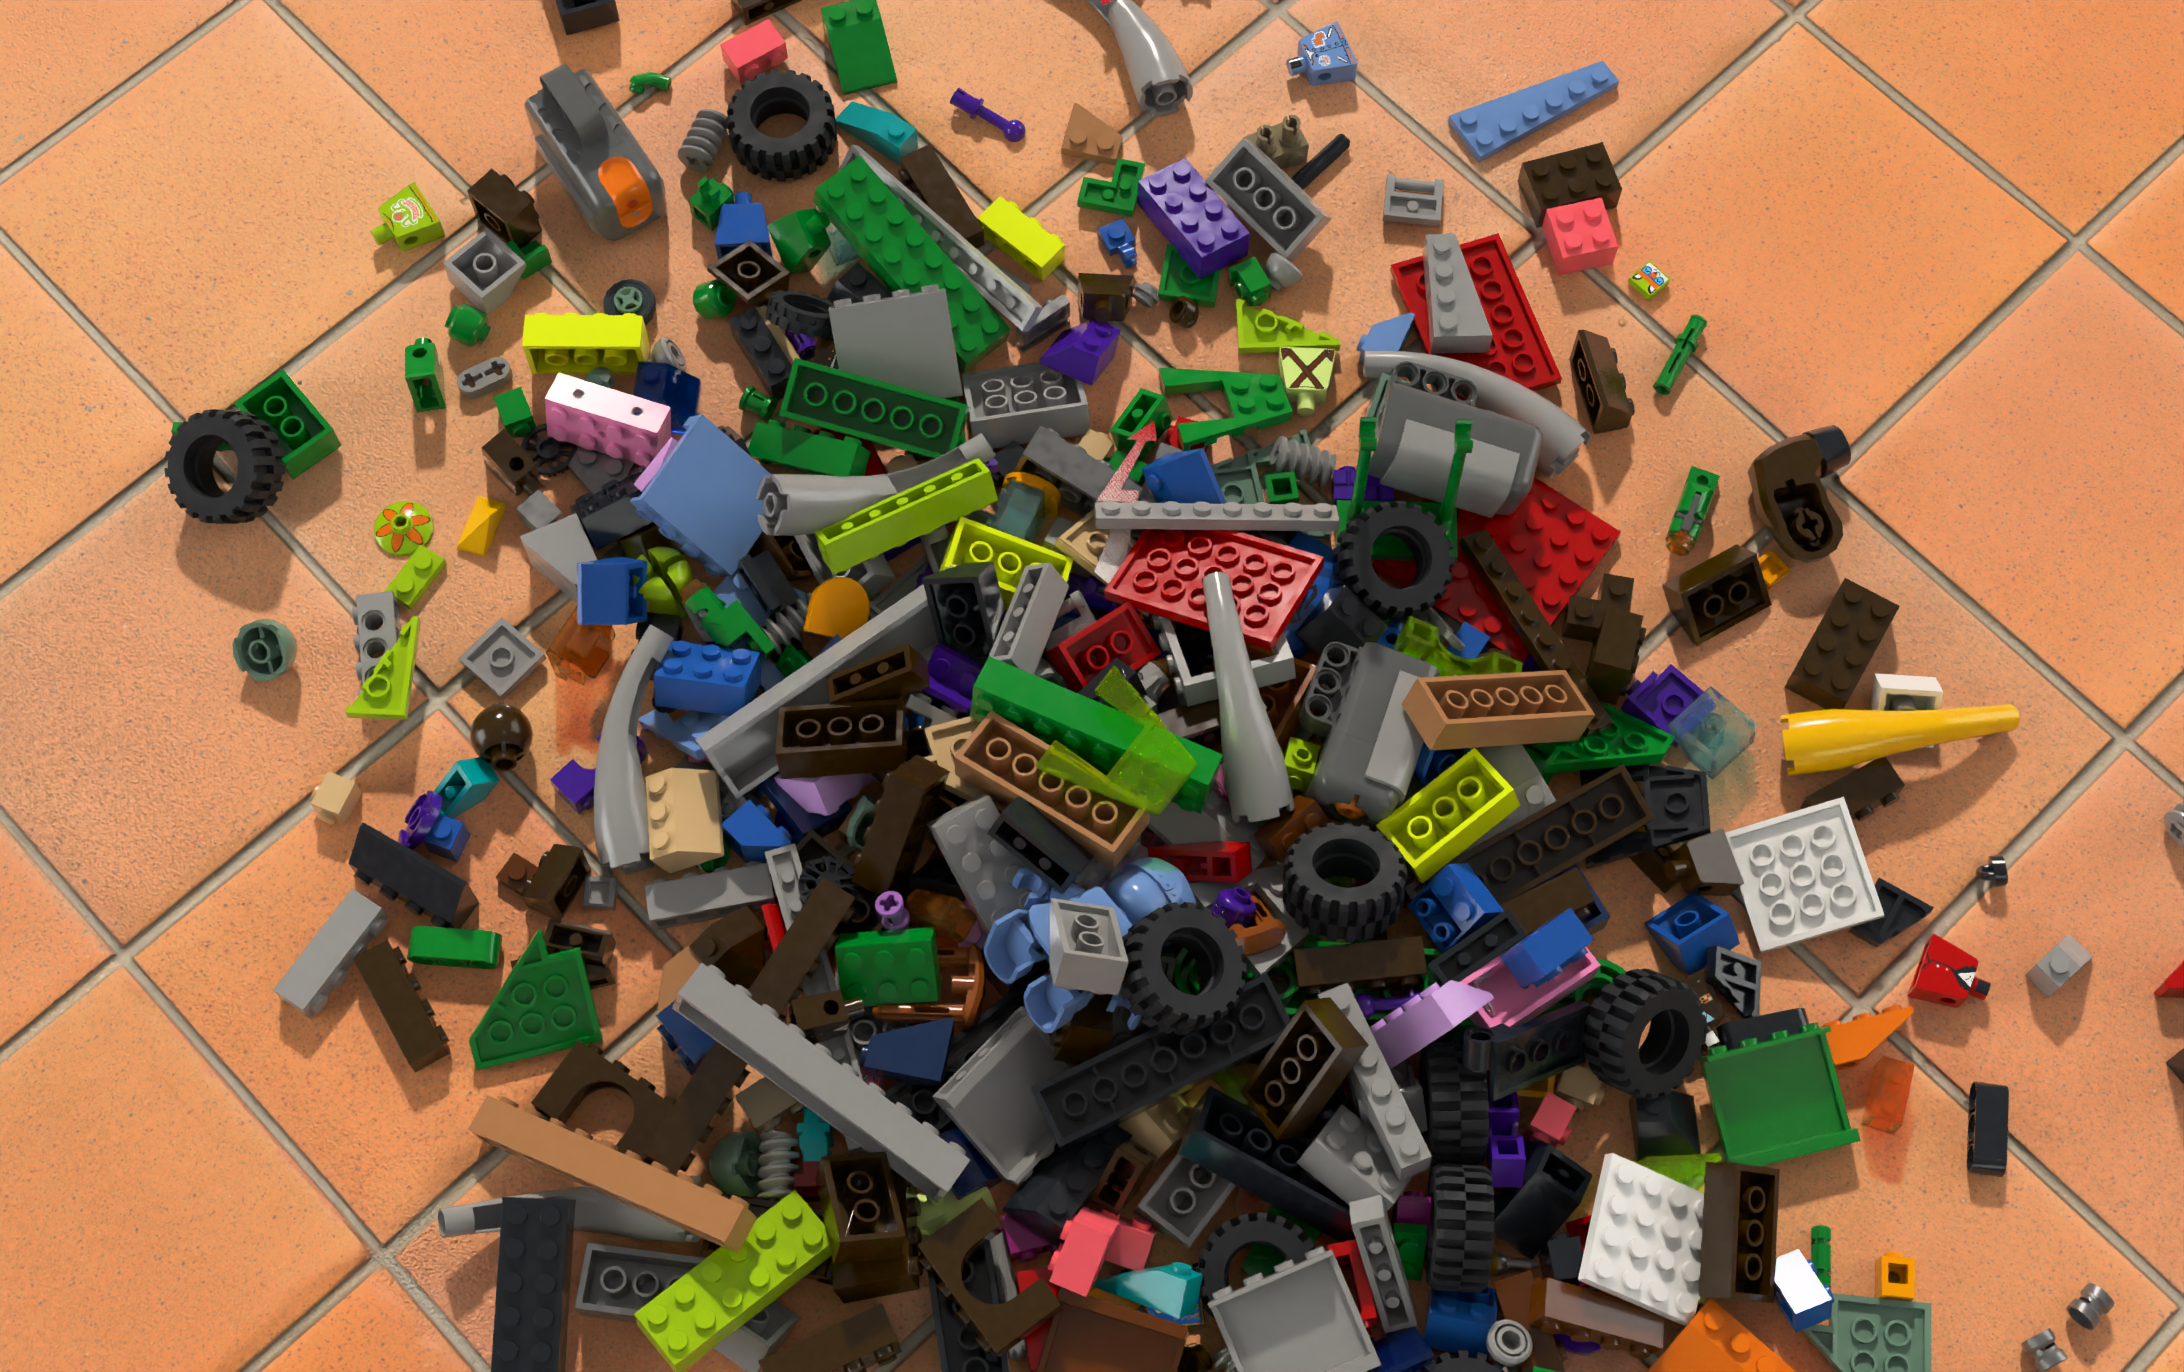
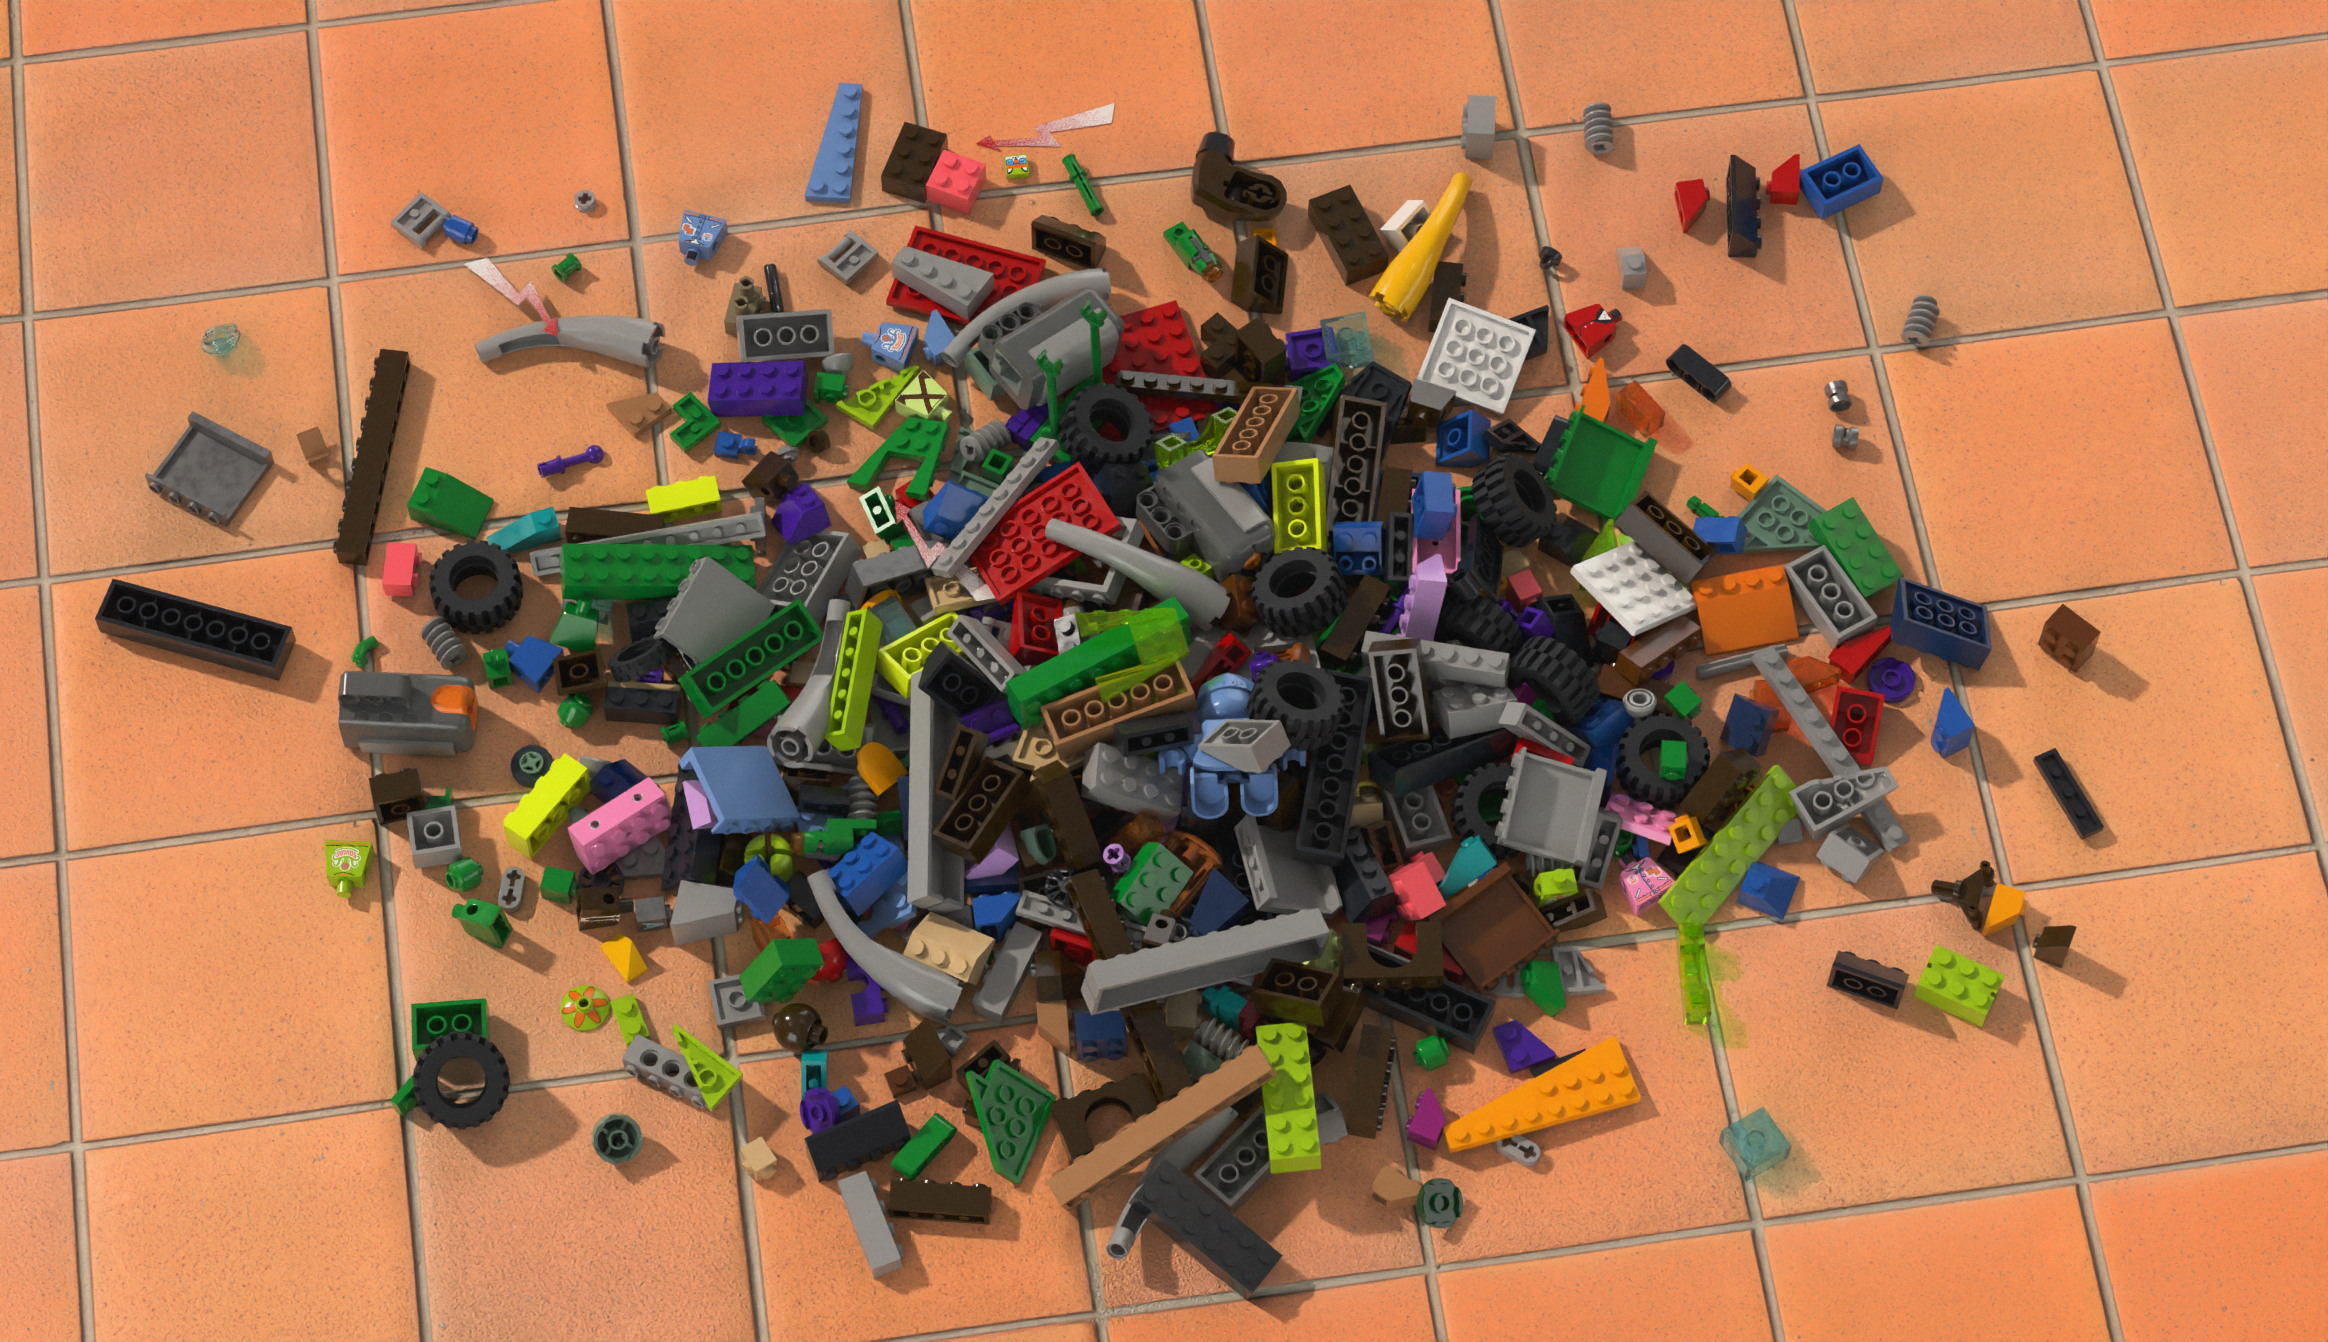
camera: 55 degrees left, 5 degrees down
(542, 674) = (781, 970): none -> green brick
(588, 710) = (834, 959): none -> red cylinder
(1346, 305) = (892, 345): none -> medium blue torso
(1765, 310) = (1089, 118): none -> sticker
(2087, 689) = (1478, 127): none -> light grey brick

